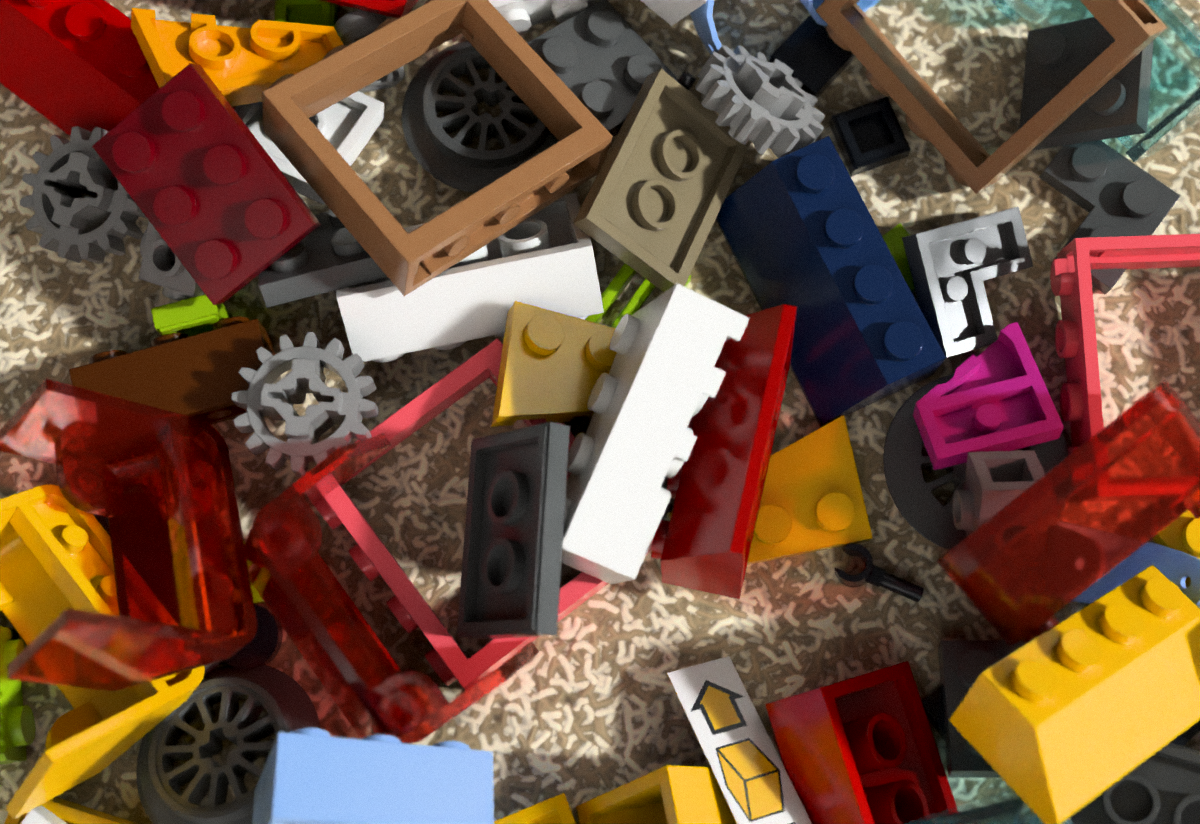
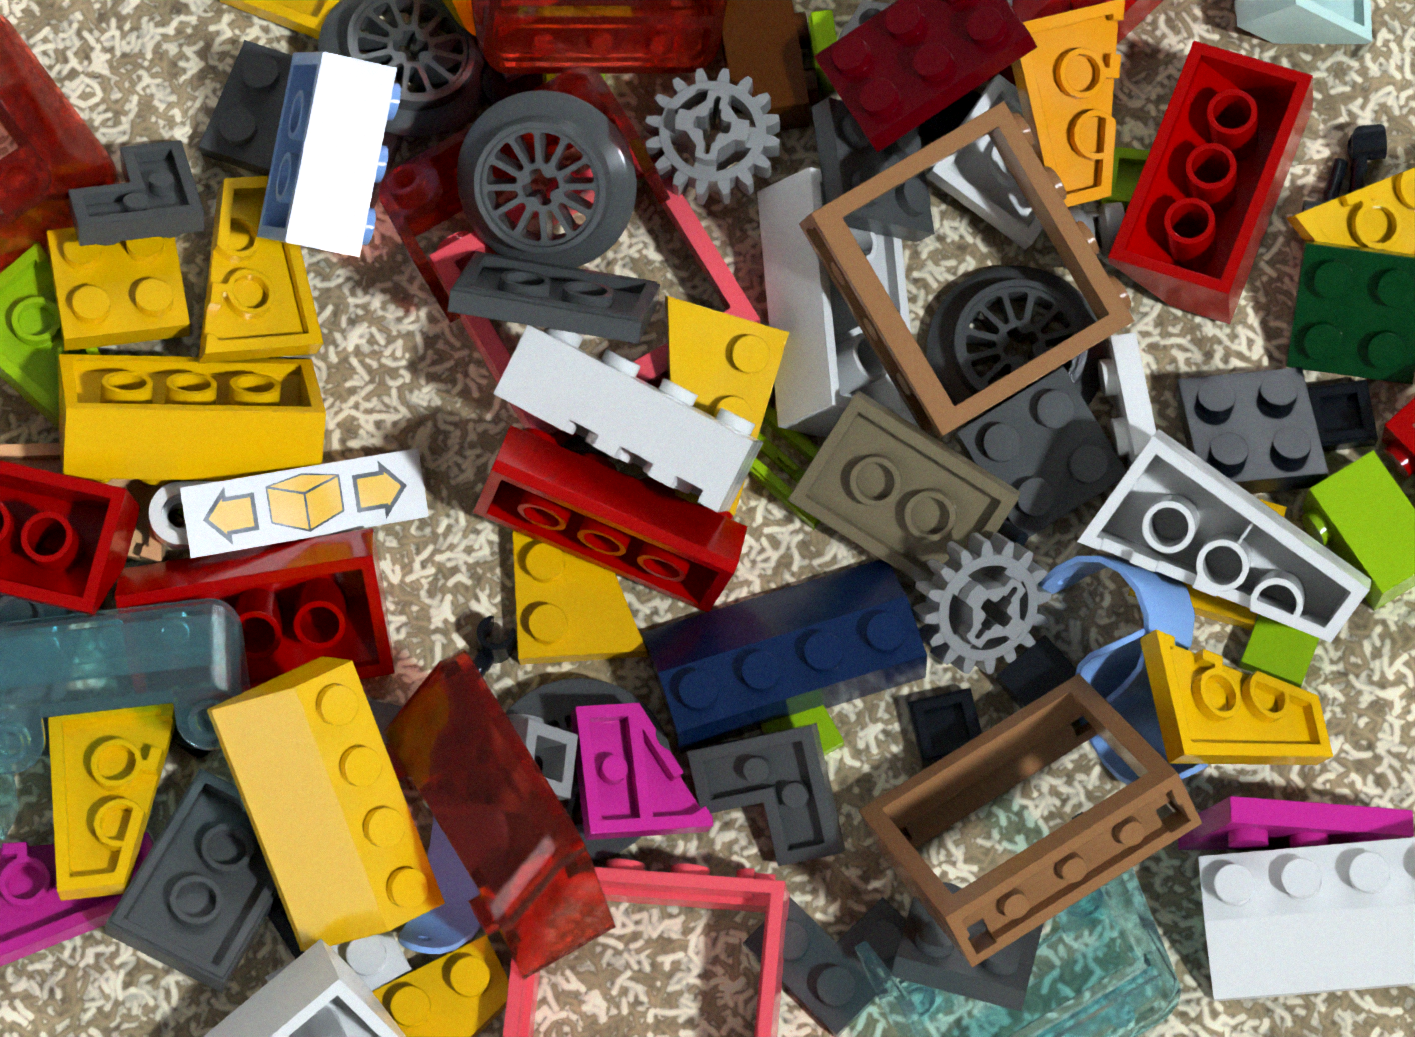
camera: 100 degrees right, 5 degrees down
(317, 563) = (573, 123): none -> dark grey piece

